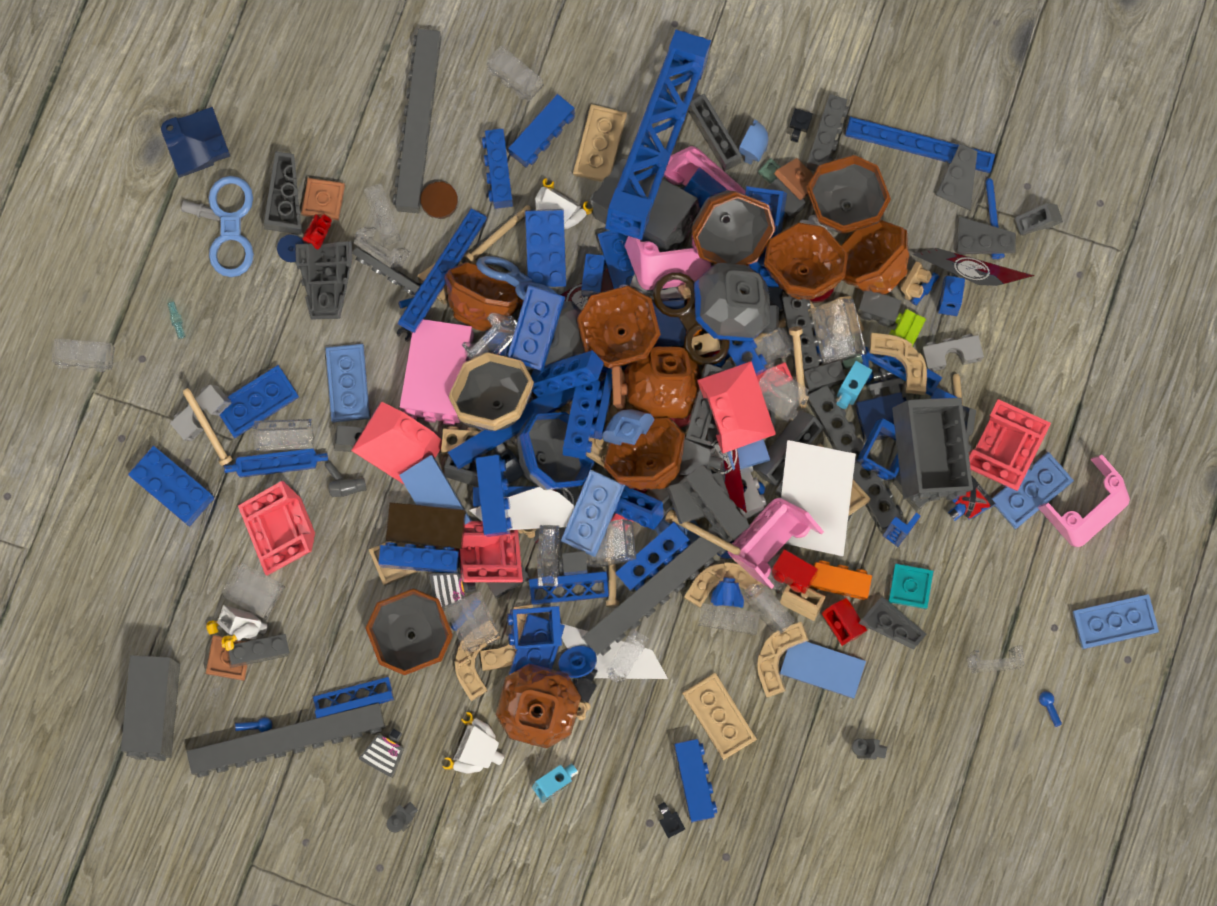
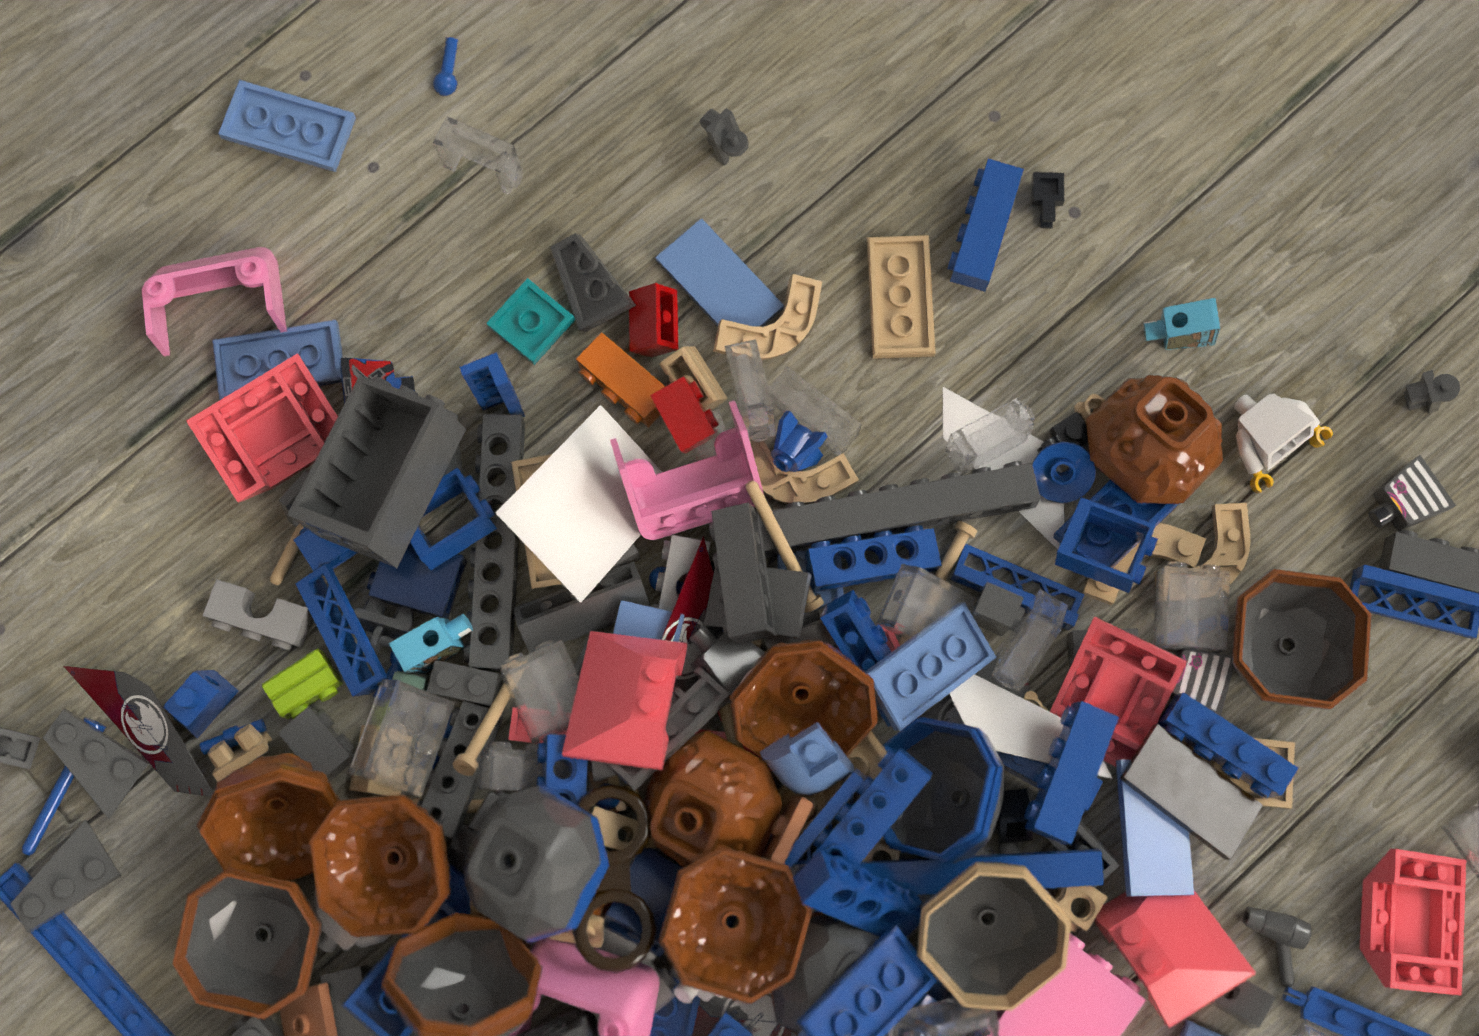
camera: 150 degrees left, 0 degrees up
(903, 351) = (323, 639): tan plate -> none

